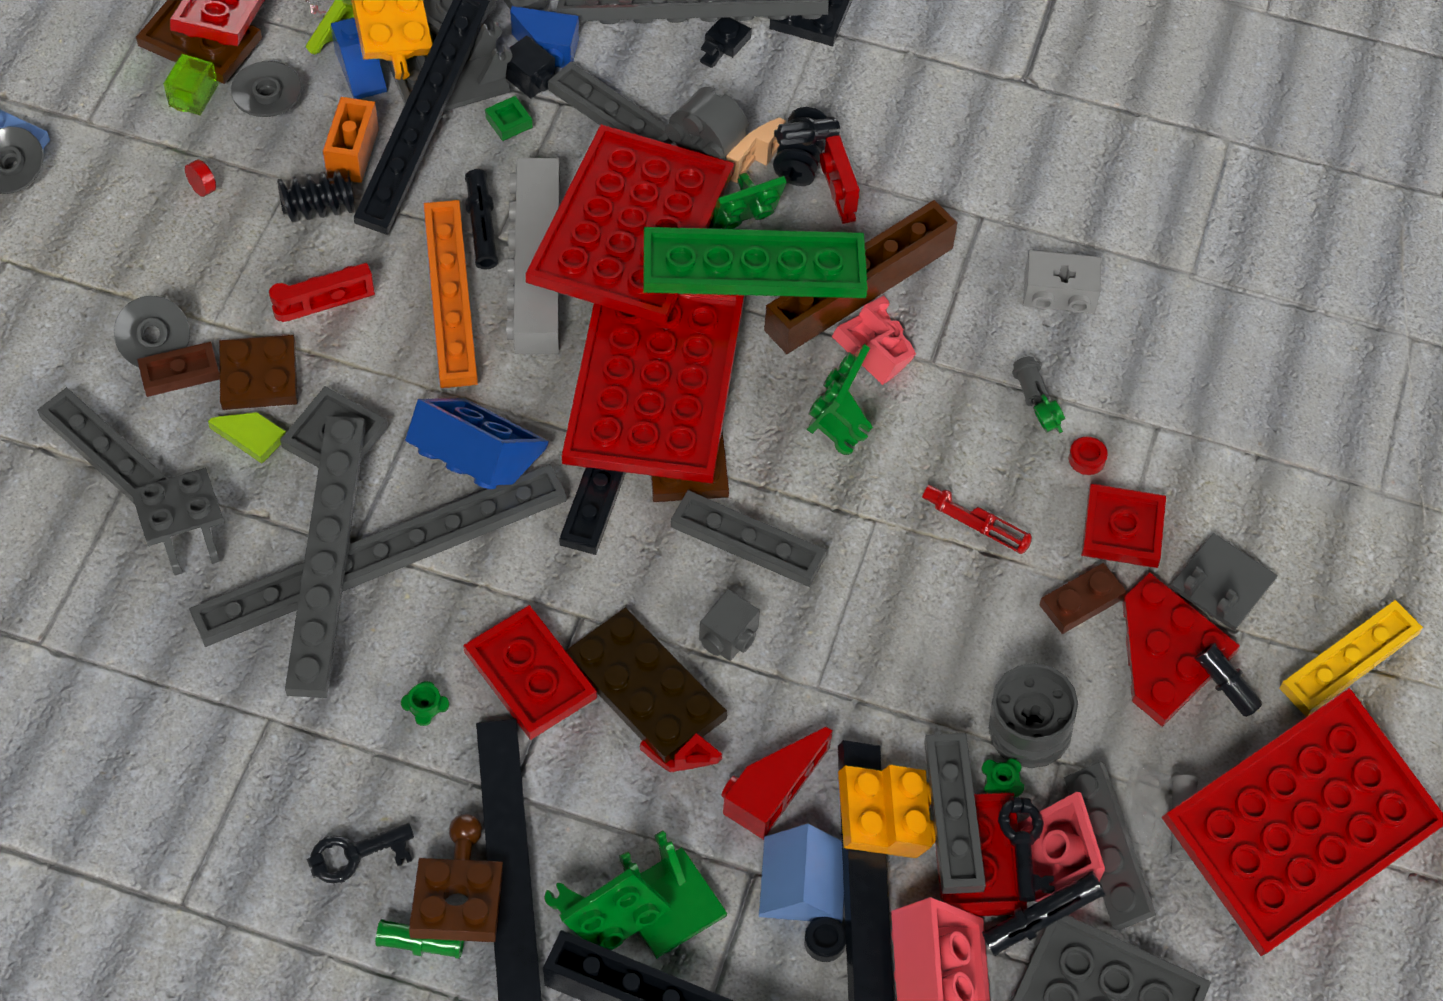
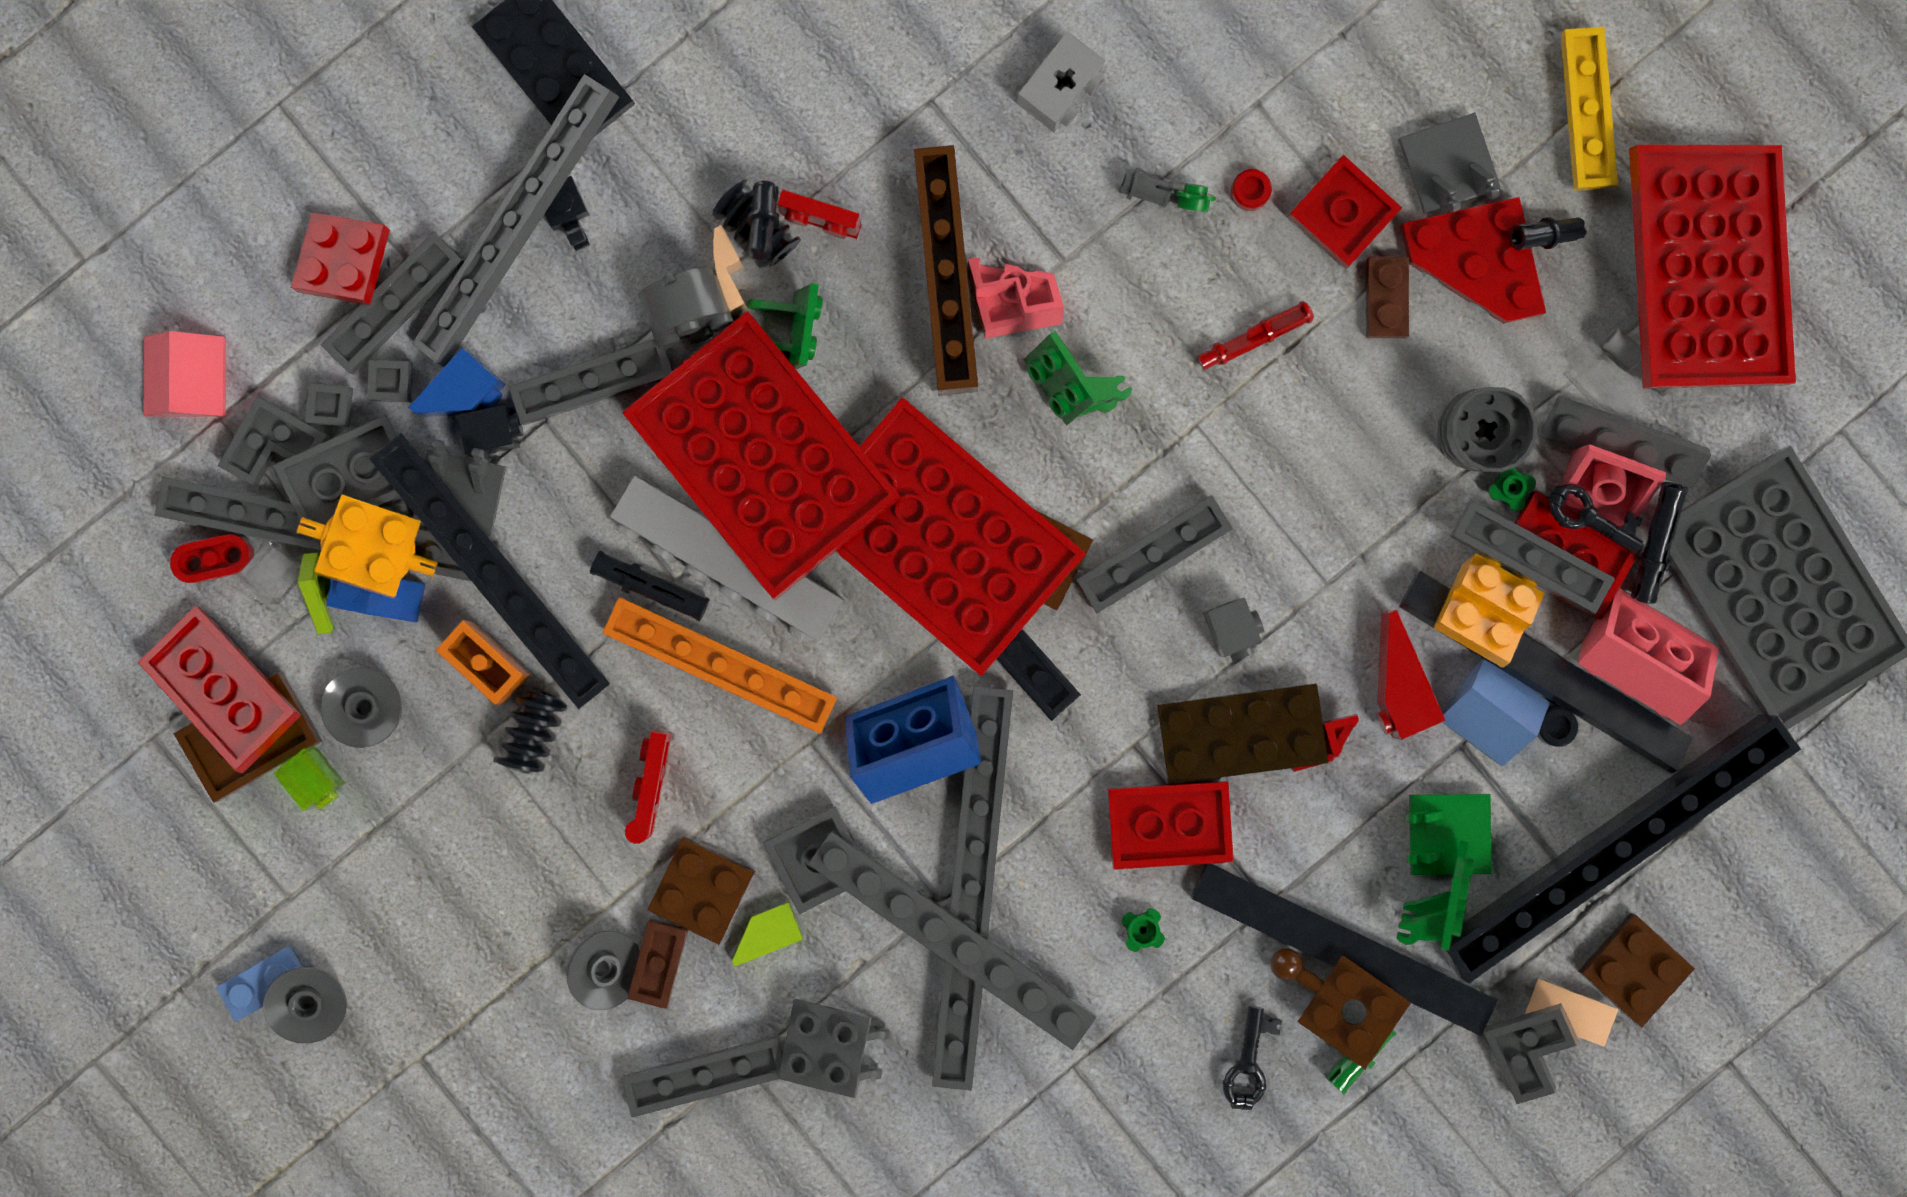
camera: 60 degrees left, 30 degrees up
(200, 178) = (437, 829): red tile -> none
(508, 118) = (540, 488): green plate -> none
(754, 262) = (895, 376): green plate -> none

